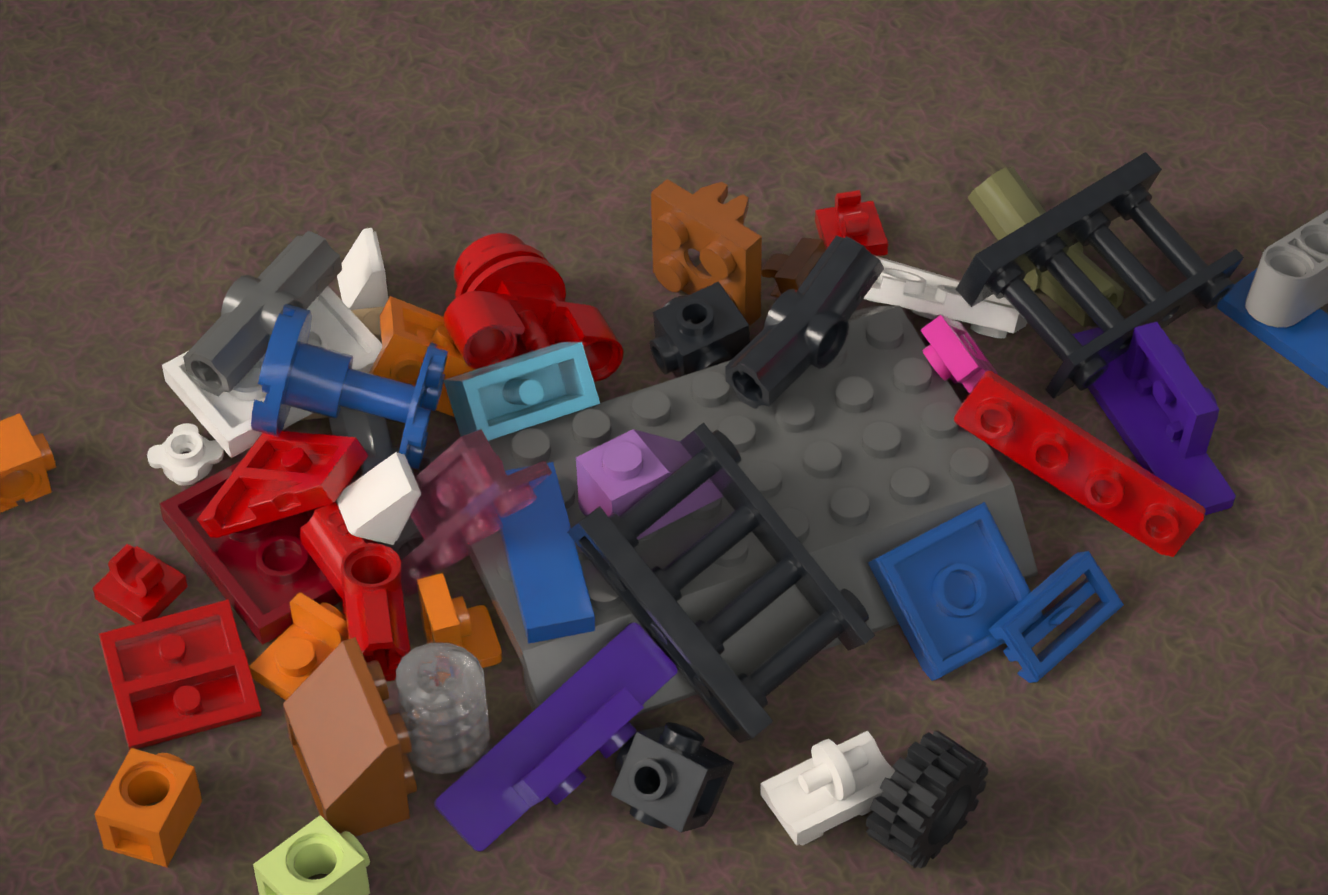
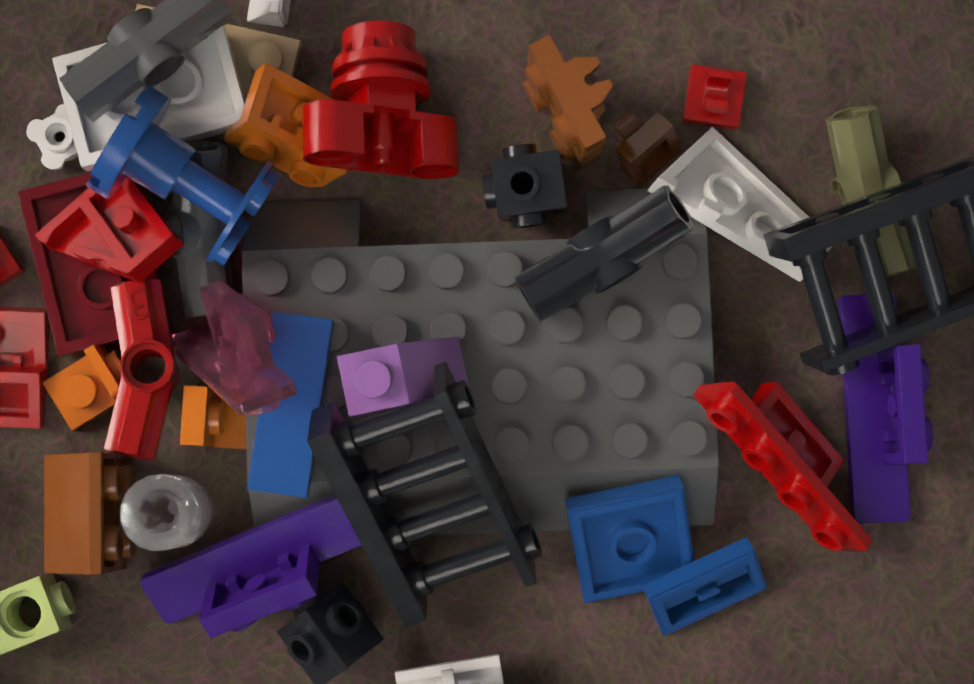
camera: 20 degrees right, 35 degrees up
(380, 500) = (176, 298): white slope -> none
(523, 391) = (342, 210): medium azure brick -> none
(954, 352) = (733, 325): dark pink plate -> none

